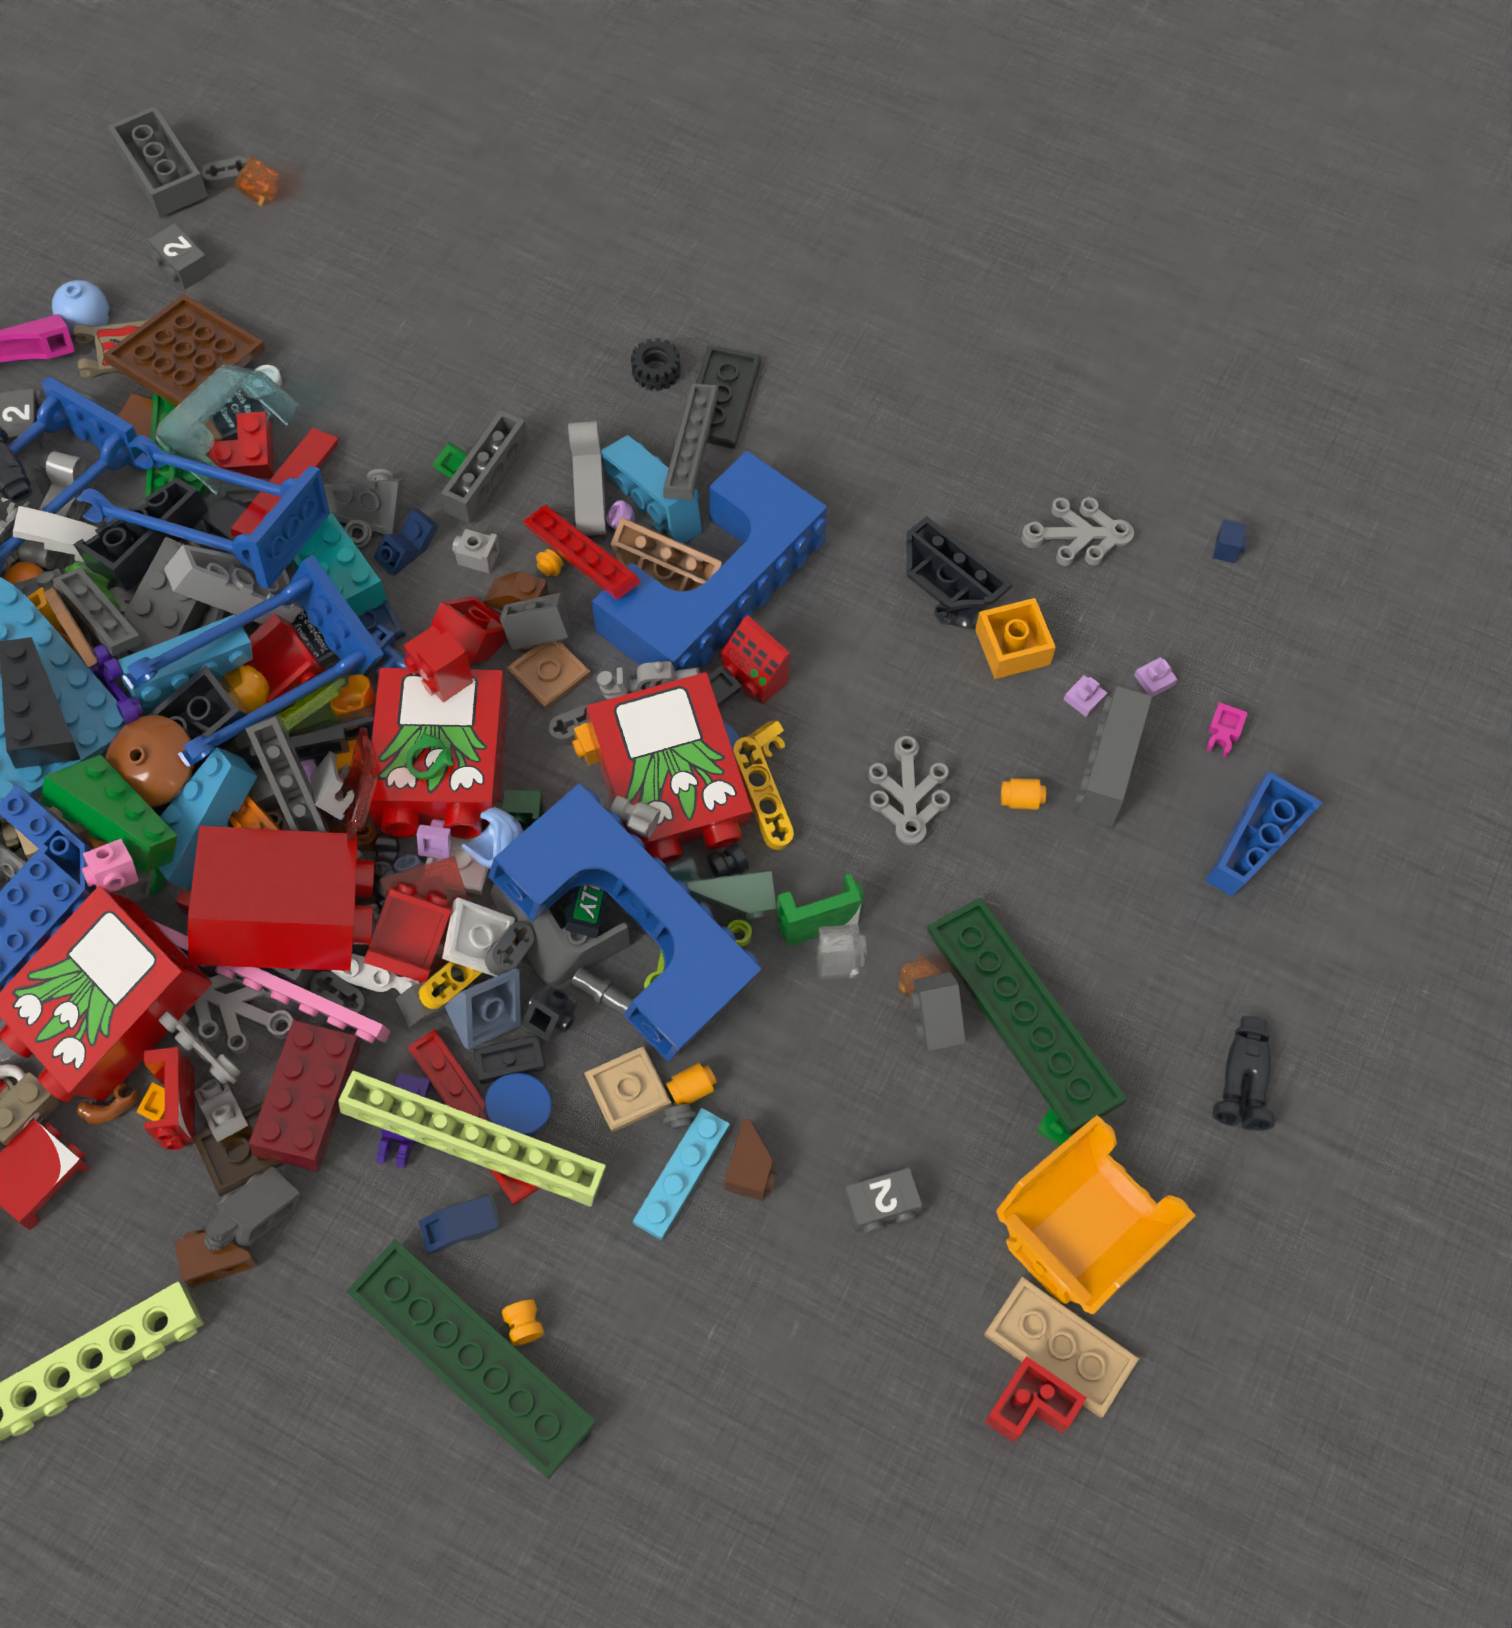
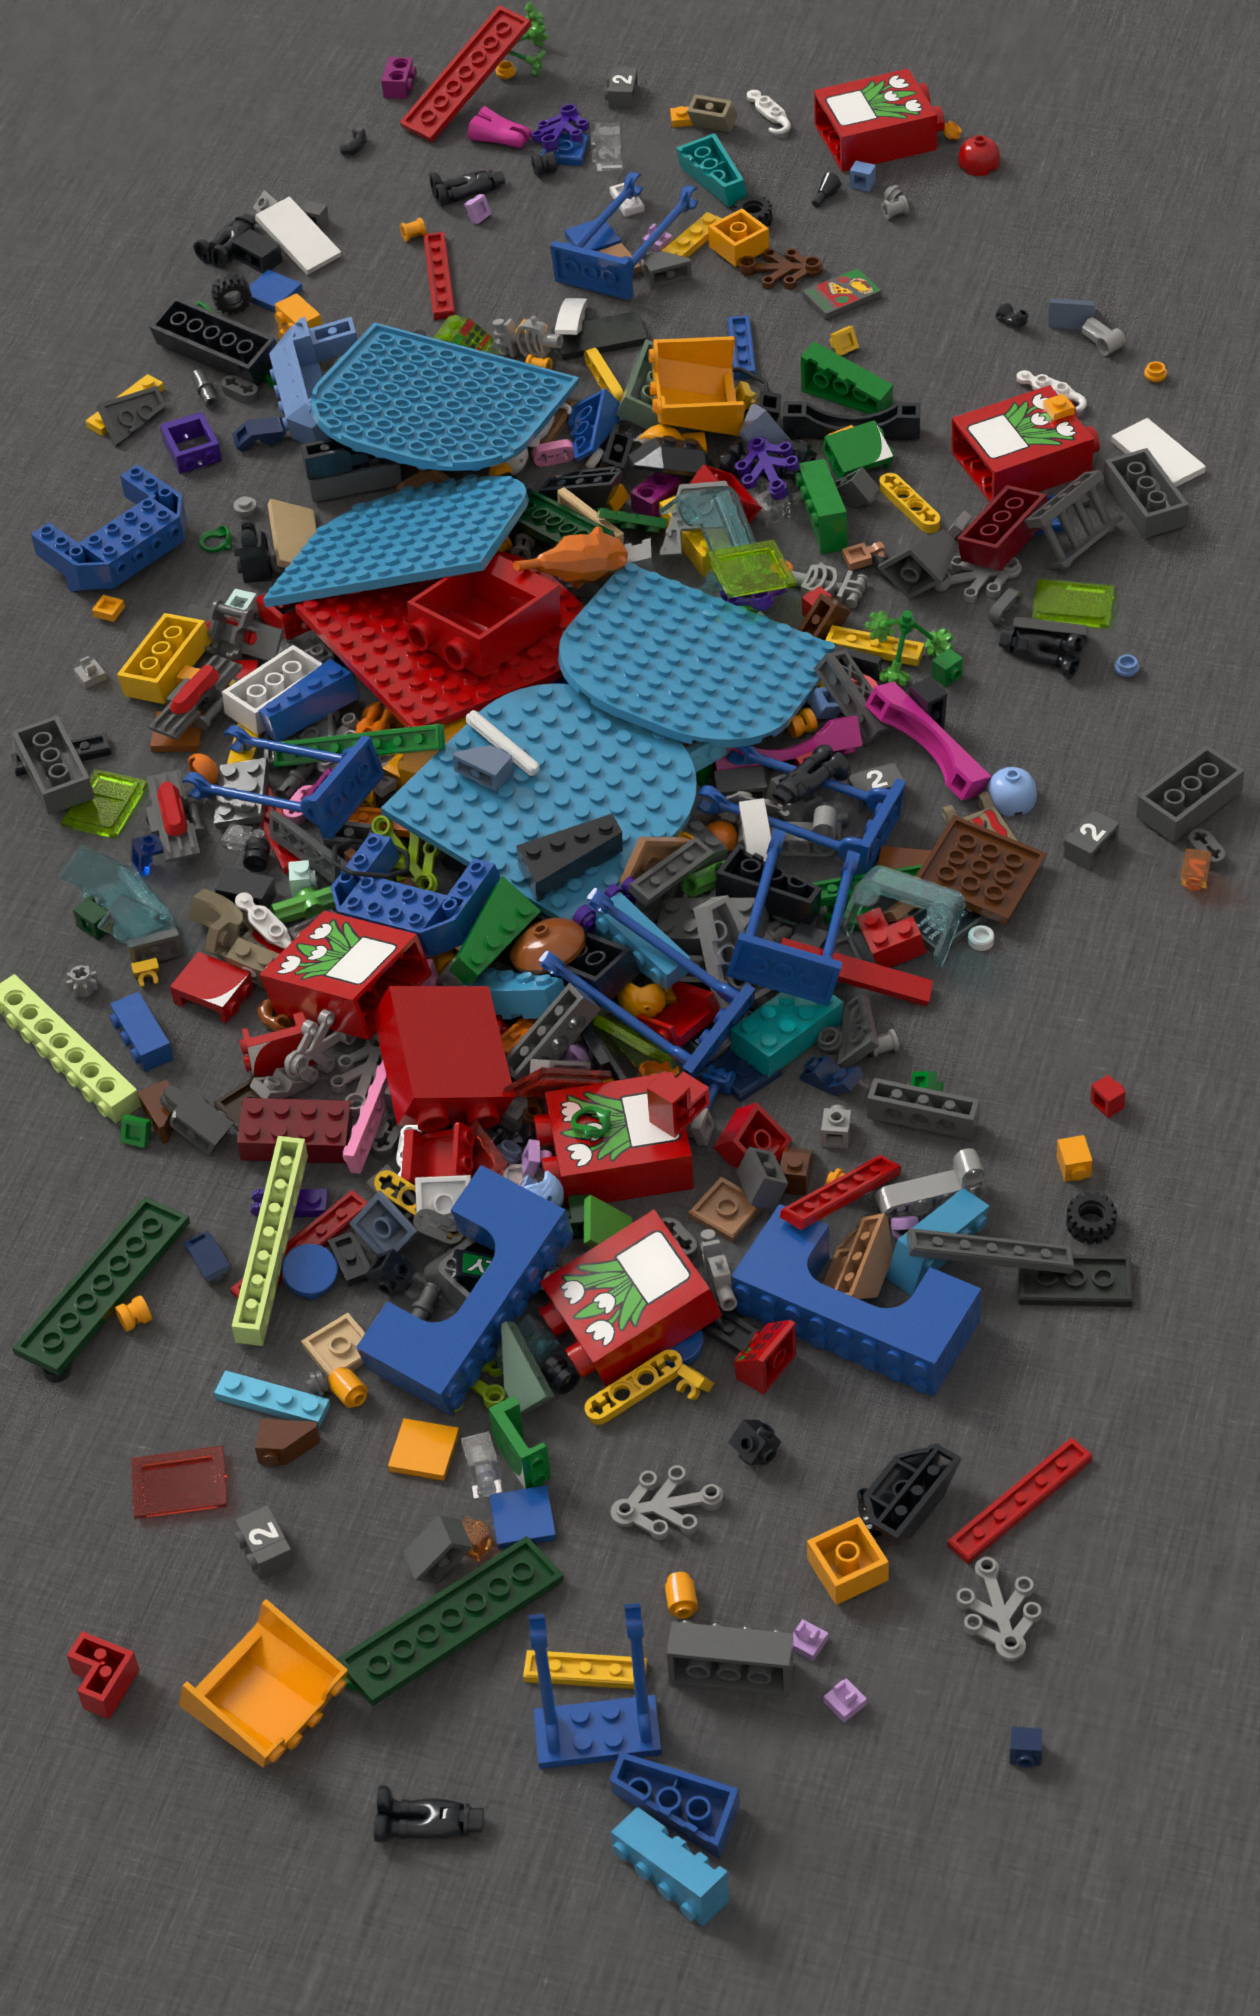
camera: 85 degrees right, 15 degrees down
(71, 1272) = (140, 1032): none -> blue brick
(109, 867) = (439, 941): bright pink brick -> none
(235, 1294) = (135, 1131): none -> green tile
(515, 317) = (1108, 1096): none -> red plate
(552, 780) = (602, 1221): none -> bright green tile
(583, 360) = (1074, 1158): none -> light orange brick
(639, 817) = (557, 1272): light grey piece -> none
(776, 1293) = (178, 1482): none -> clear red piece
(788, 1017) = (423, 1449): none -> light orange tile
(859, 692) = (755, 1442): none -> black brick
(895, 929) = (522, 1515): none -> blue tile
(961, 494) = (1019, 1500): none -> red tile
(1062, 1344) = (152, 1701): tan tile -> none
(1088, 900) = (584, 1669): none -> yellow tile
(1167, 875) = (599, 1728): none -> blue piece
(1226, 727) = (801, 1767): dark pink plate -> none
(1329, 851) = (671, 1866): none -> dark azure wedge

